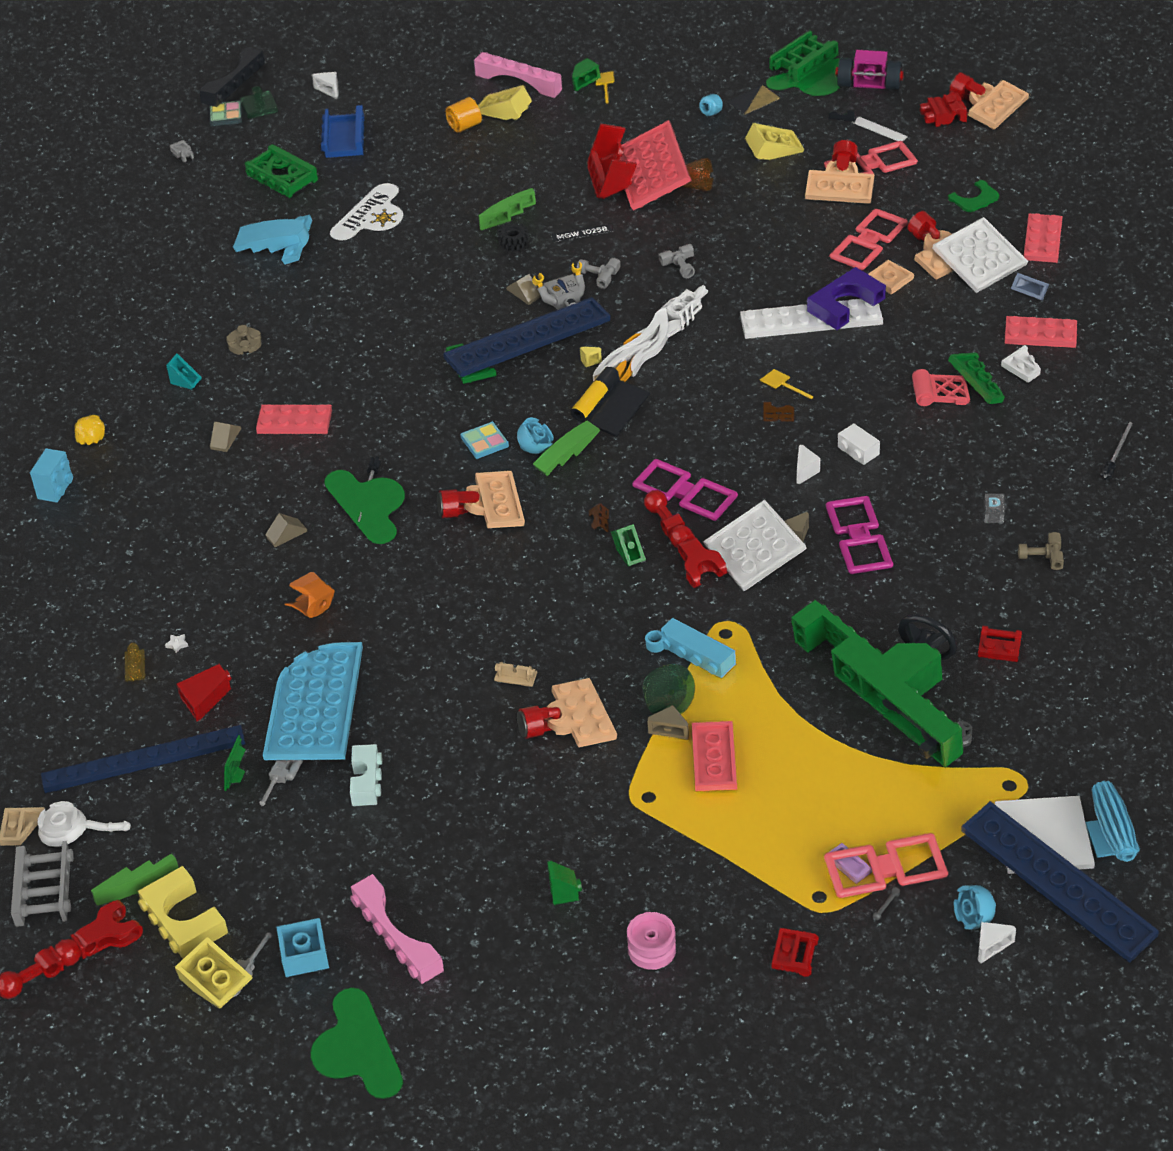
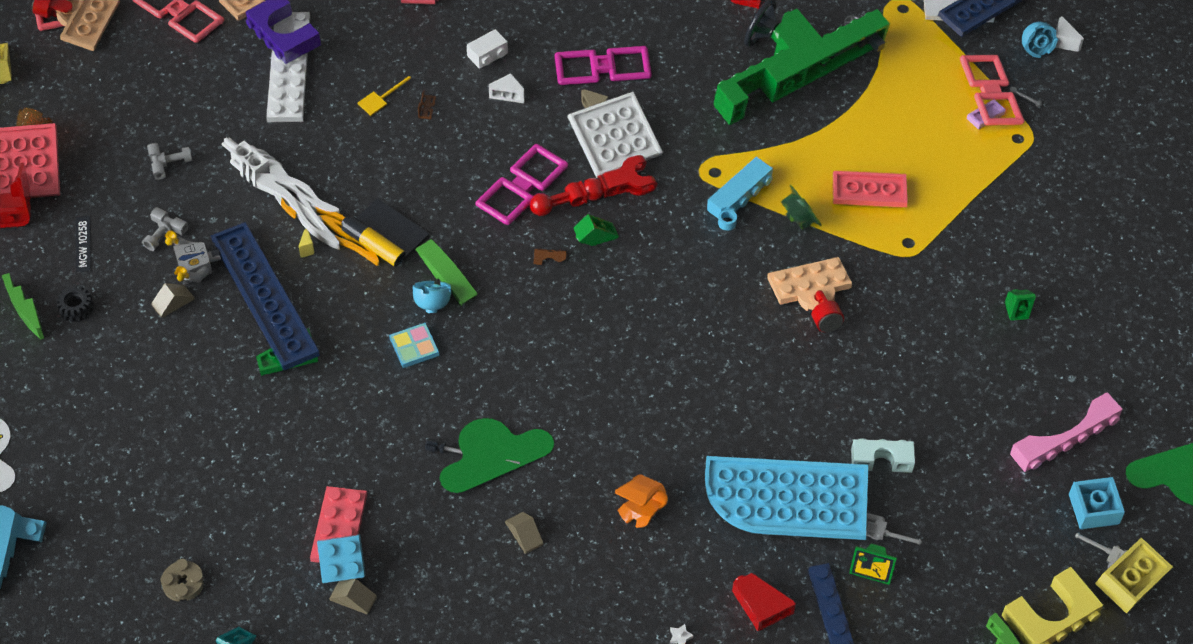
camera: 90 degrees left, 10 degrees up
(251, 415) = (341, 558): none -> medium azure brick
(491, 497) = (515, 343): light nougat plate -> none
(520, 675) = (758, 330): tan hinge -> none
(651, 940) = (1079, 244): bright pink wheel -> none
(668, 723) = (830, 215): dark tan slope -> none
(787, 950) = (1079, 157): red plate -> none

